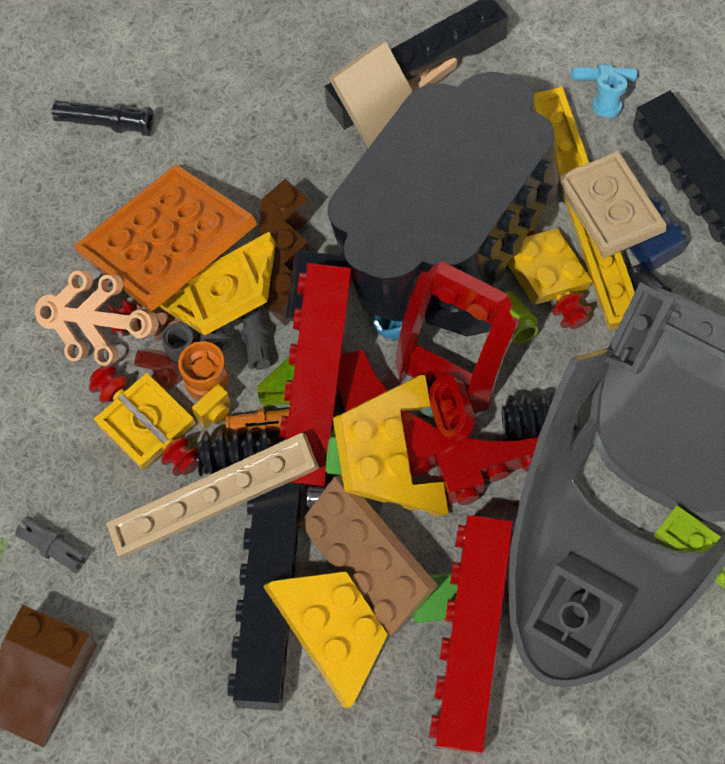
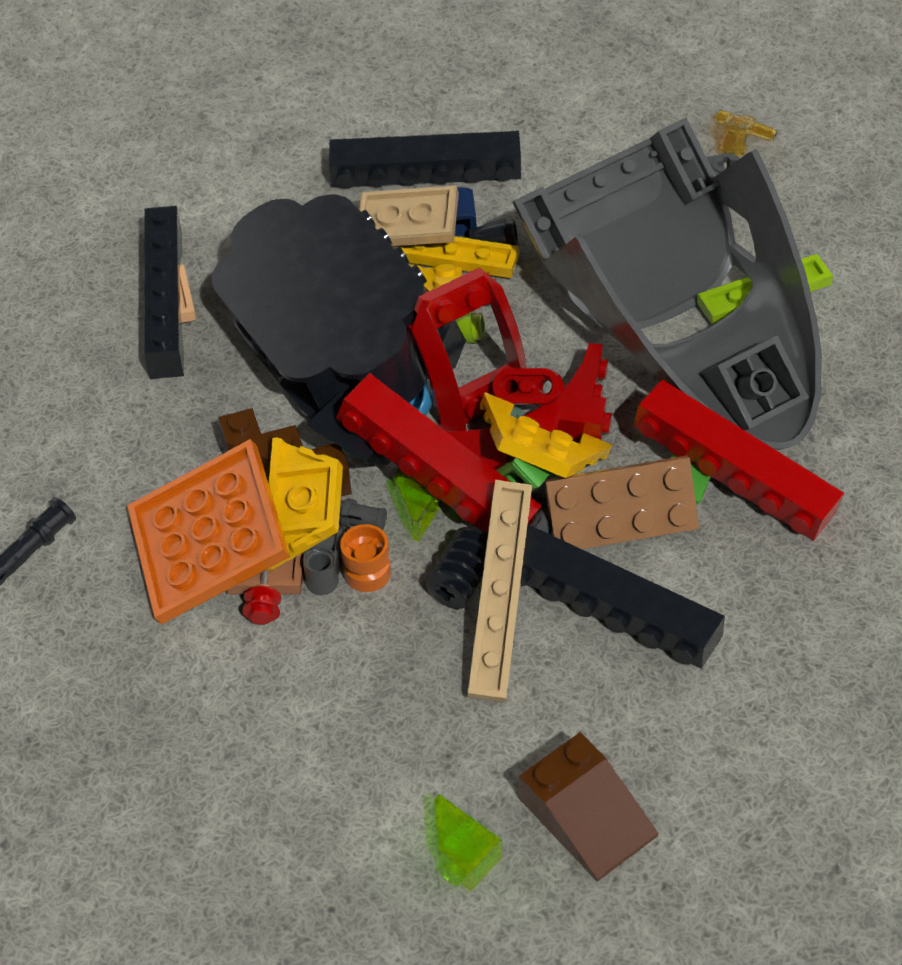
camera: 65 degrees left, 15 degrees down
(51, 544) = (458, 751): dark grey pin -> none
(88, 317) = (245, 625): light nougat plant -> none
(144, 421) = (380, 628): yellow plate -> none
(160, 364) = (330, 598): clear red arm -> none
(212, 407) = (403, 569): yellow plate -> none
(239, 422) = (439, 539): orange pin -> none
(332, 627) = (676, 557): yellow wing -> none
(371, 90) = (192, 321): tan tile -> none
(526, 415) = (566, 342): black piece -> none
(610, 84) = (289, 180): medium azure piece -> none

